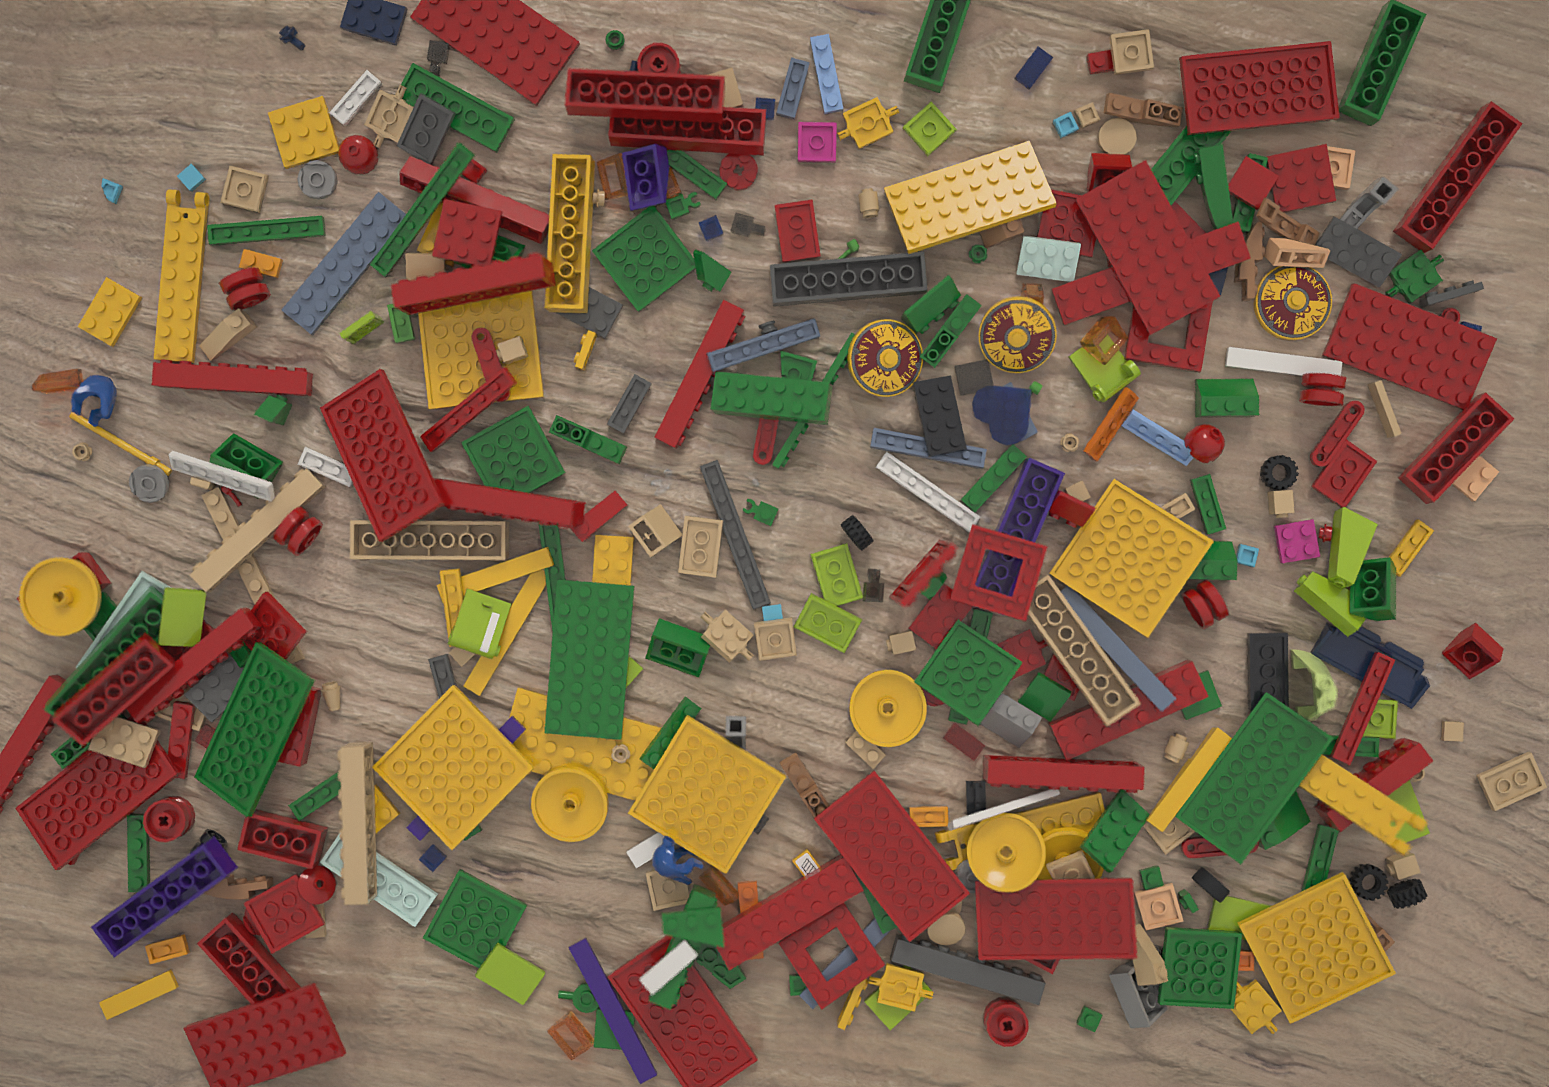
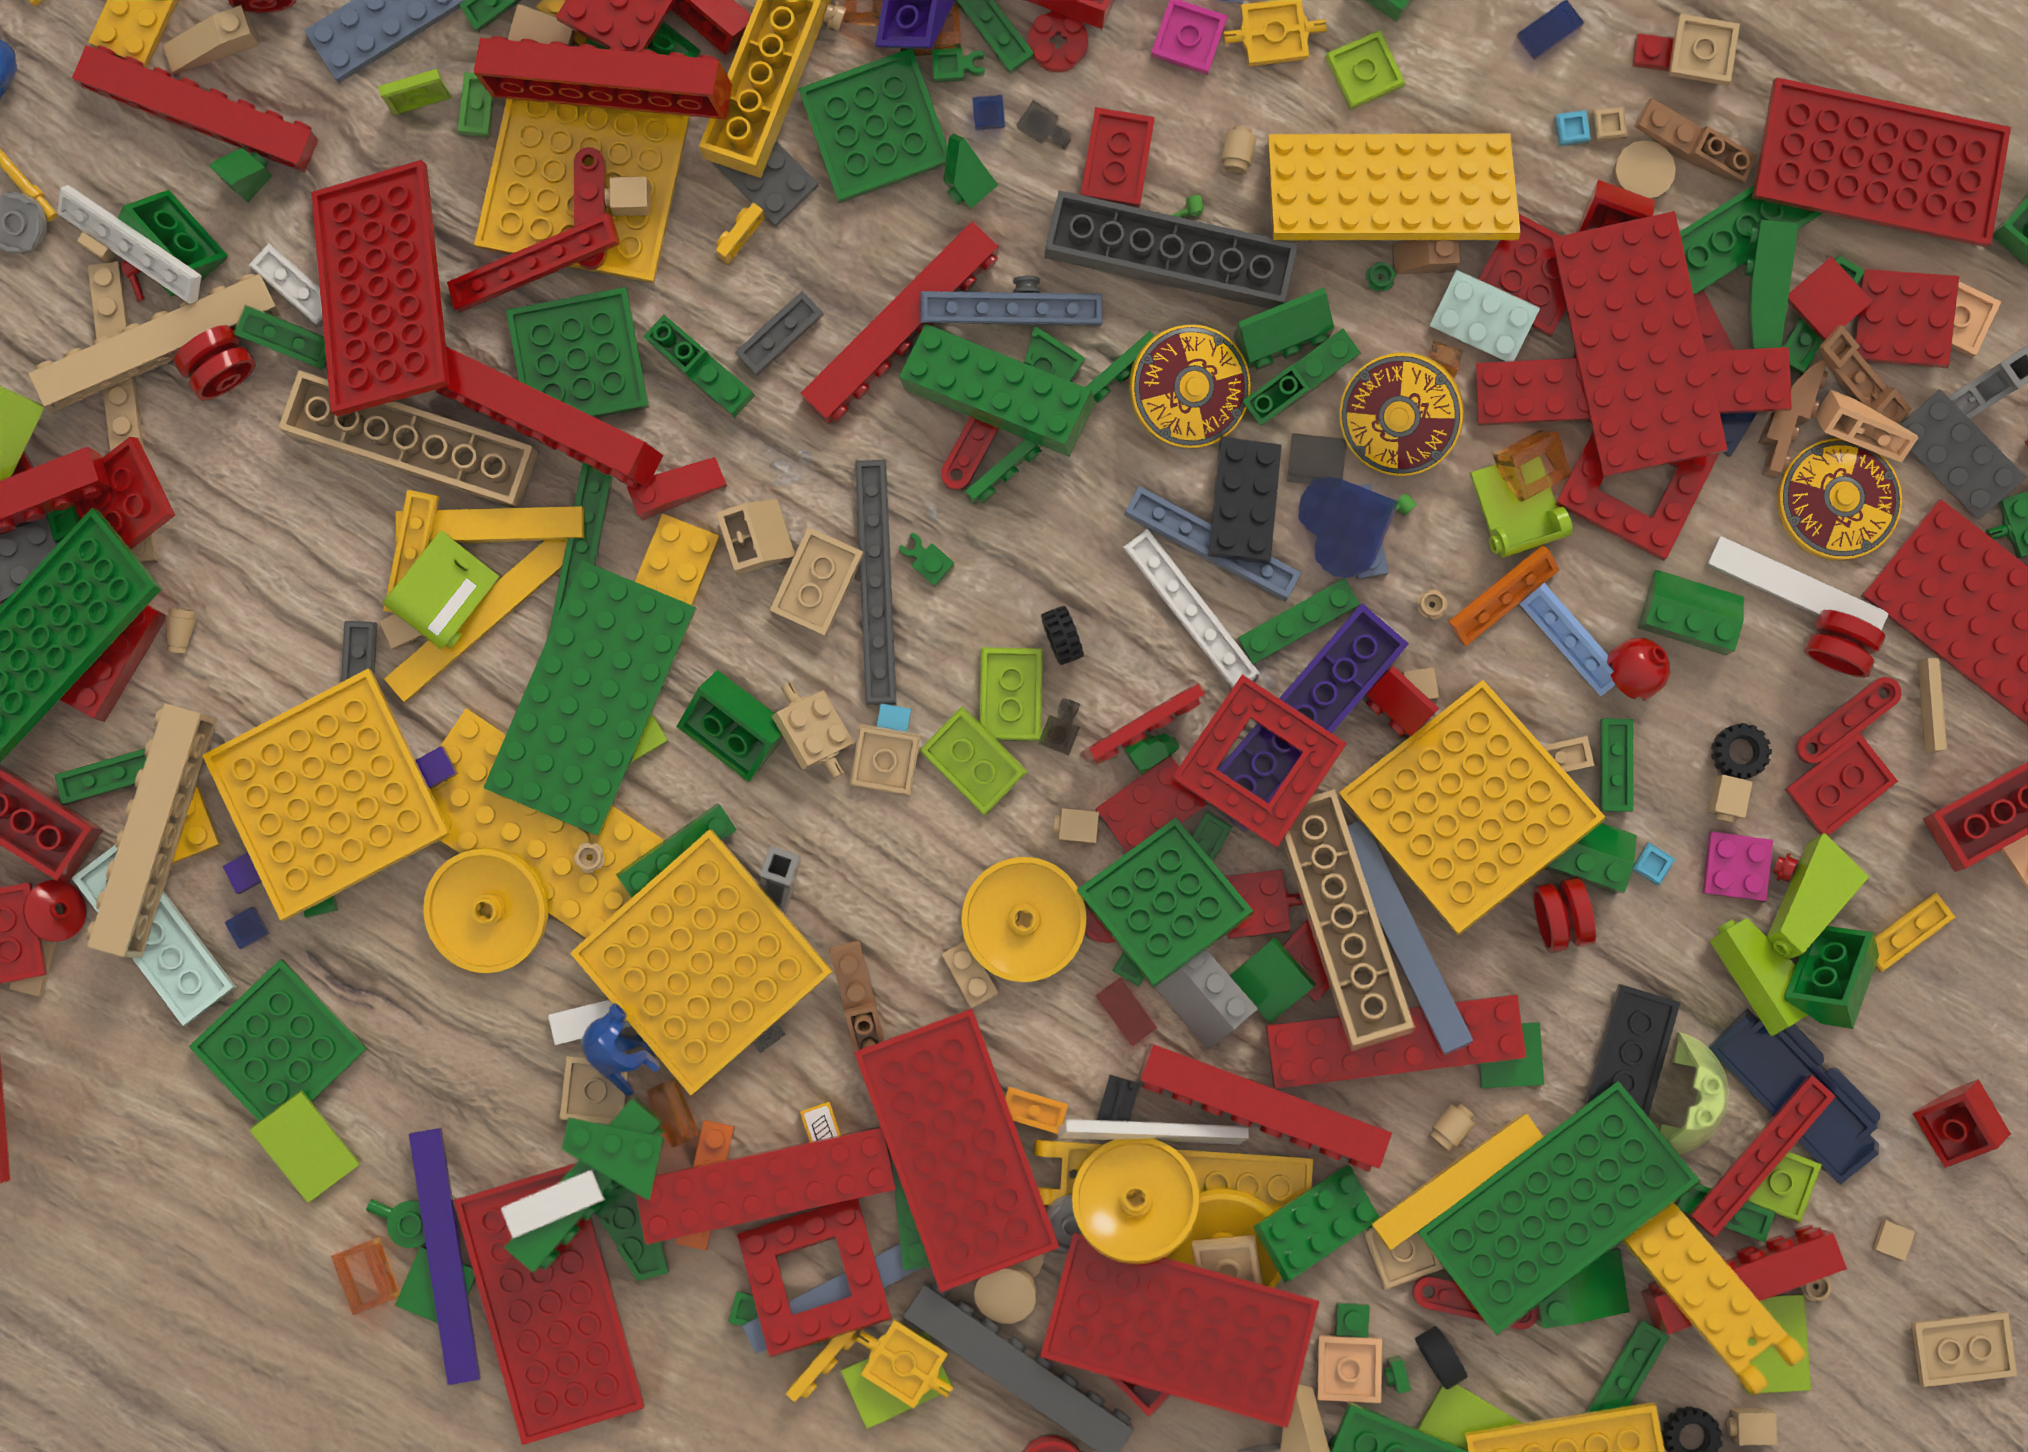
camera: 20 degrees right, 5 degrees down
(332, 502) = (281, 336): none -> green plate

